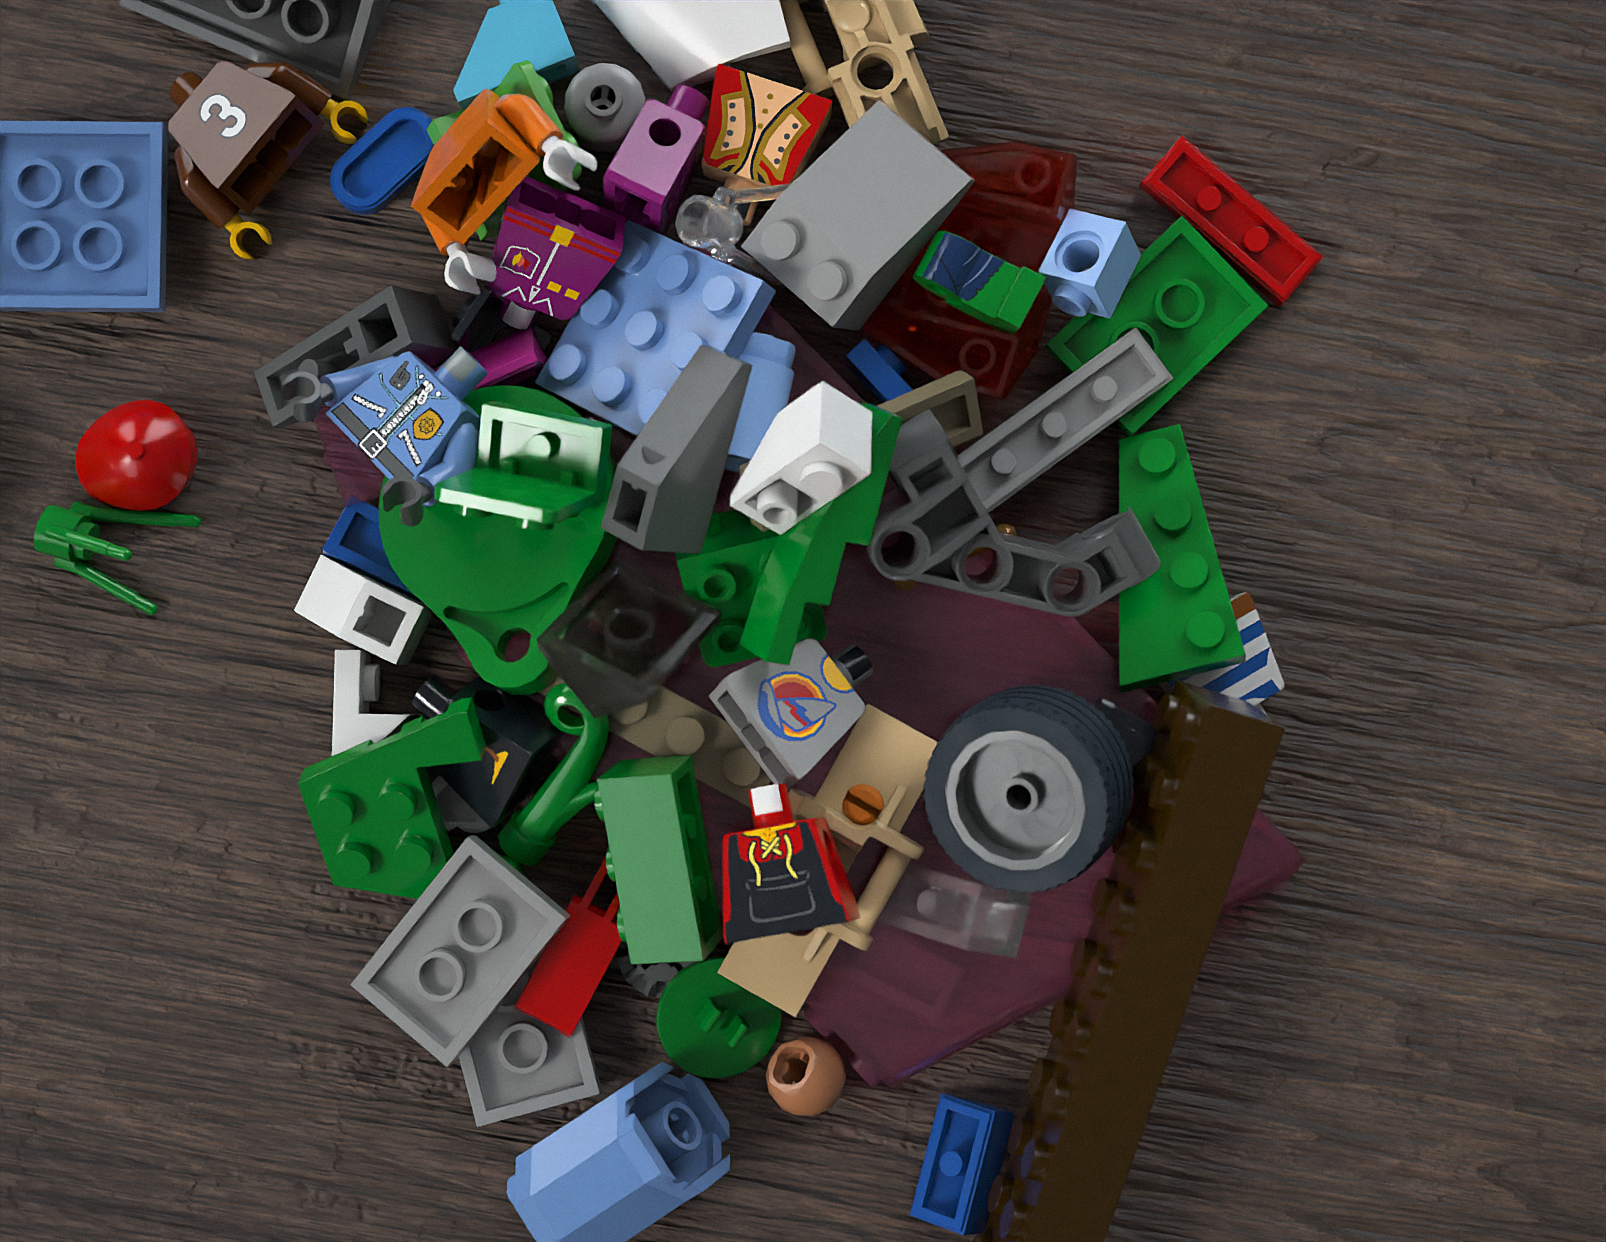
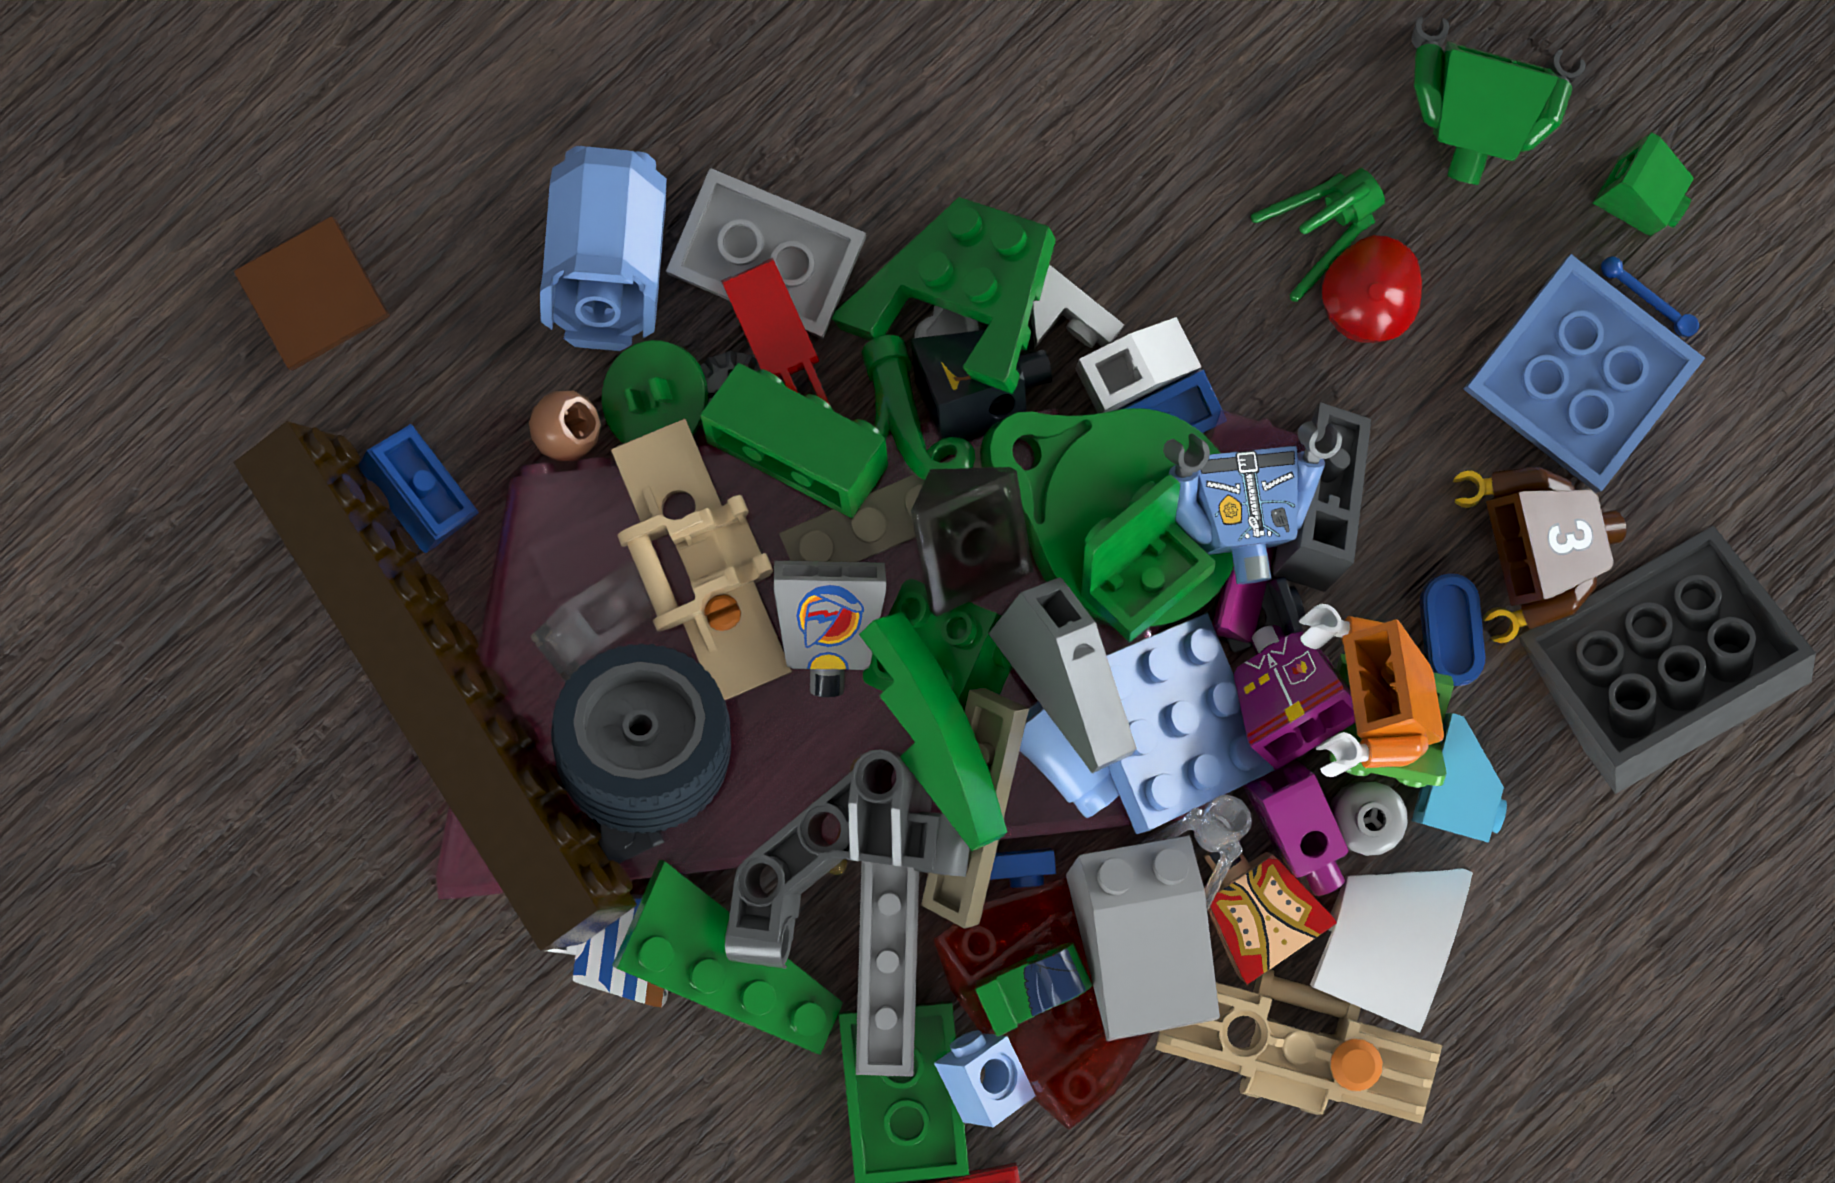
camera: 125 degrees right, 0 degrees up
(460, 950) = (841, 251): light grey plate -> none
(782, 873) = (716, 516): torso -> none
(806, 459) = (995, 759): white slope -> none

